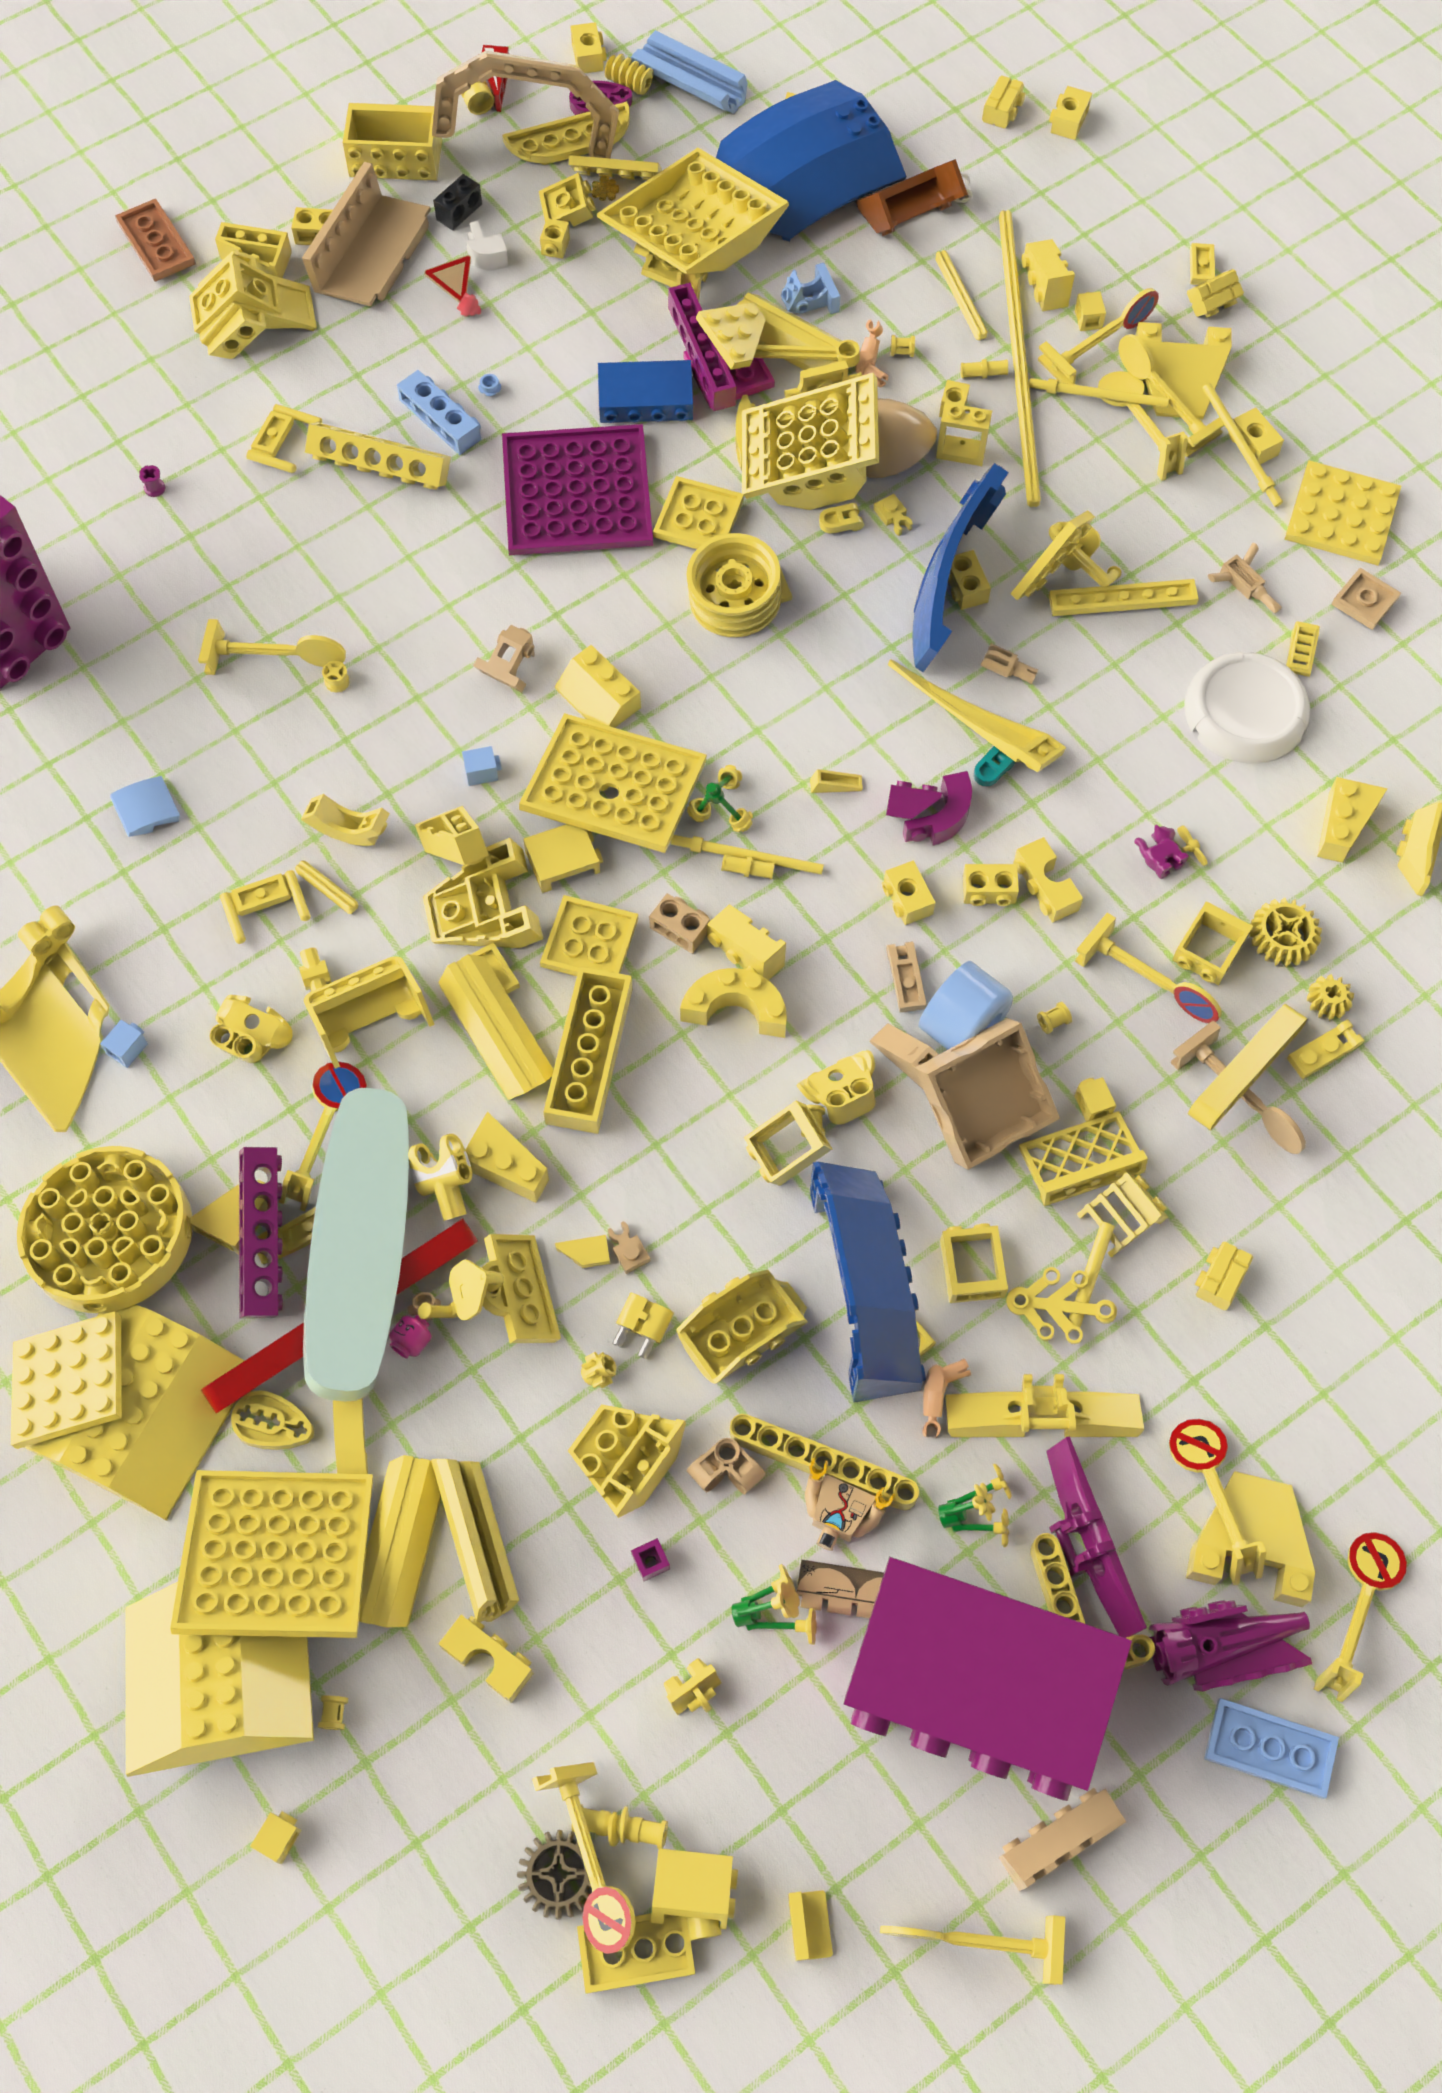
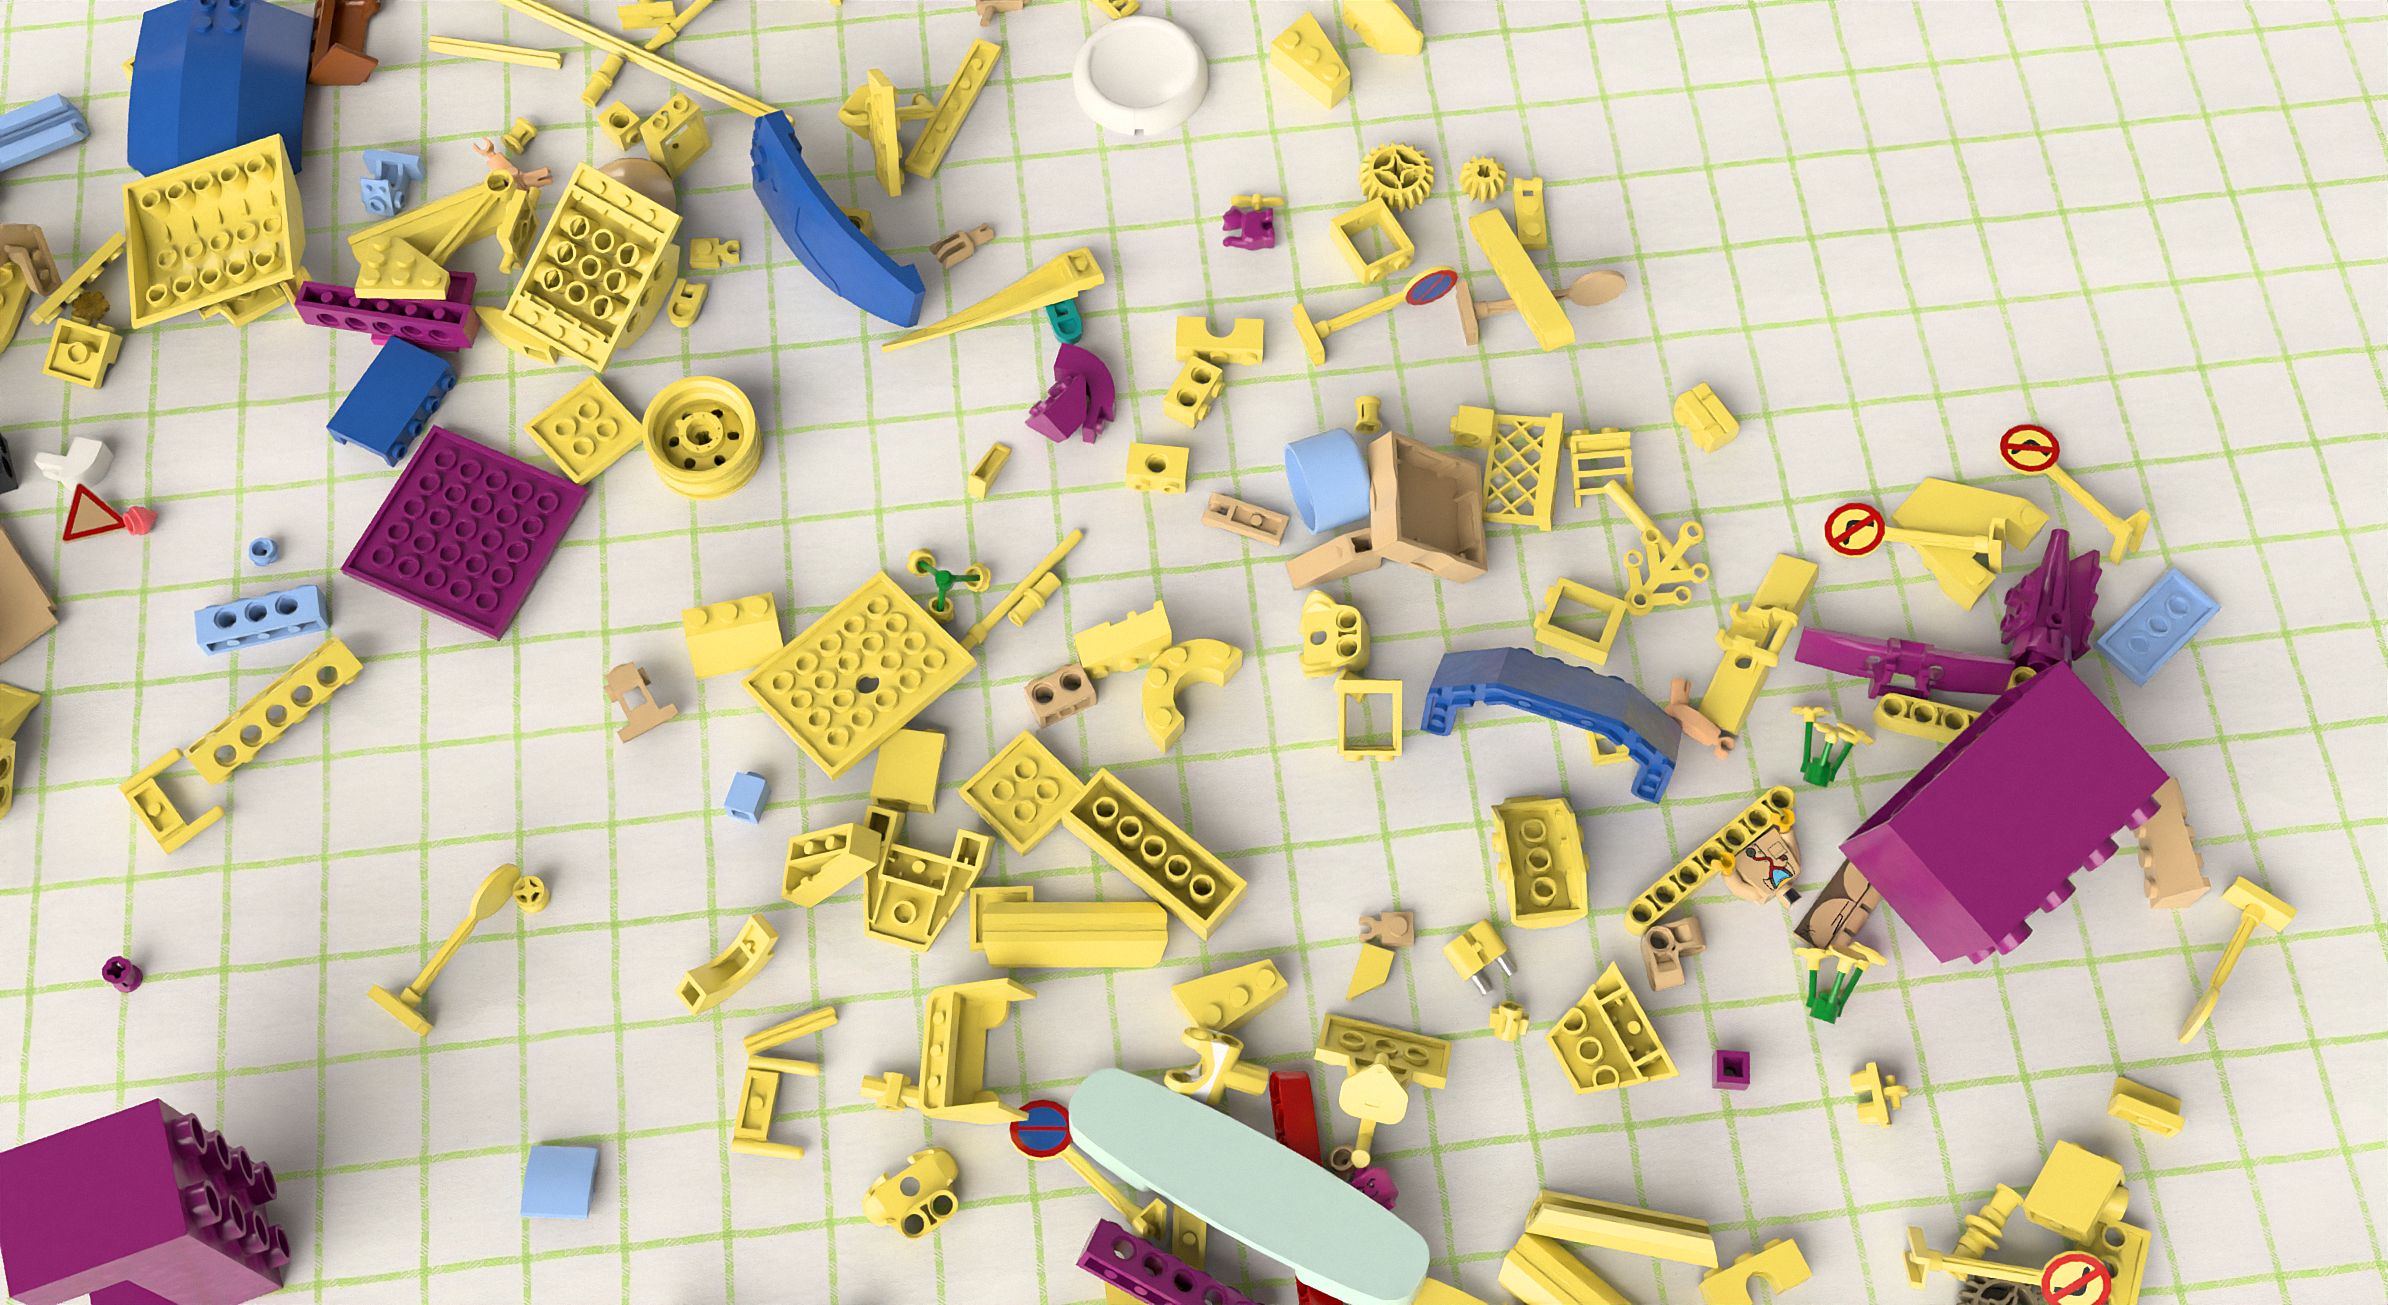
camera: 60 degrees left, 0 degrees up
(554, 238) = (114, 380): light yellow brick -> none

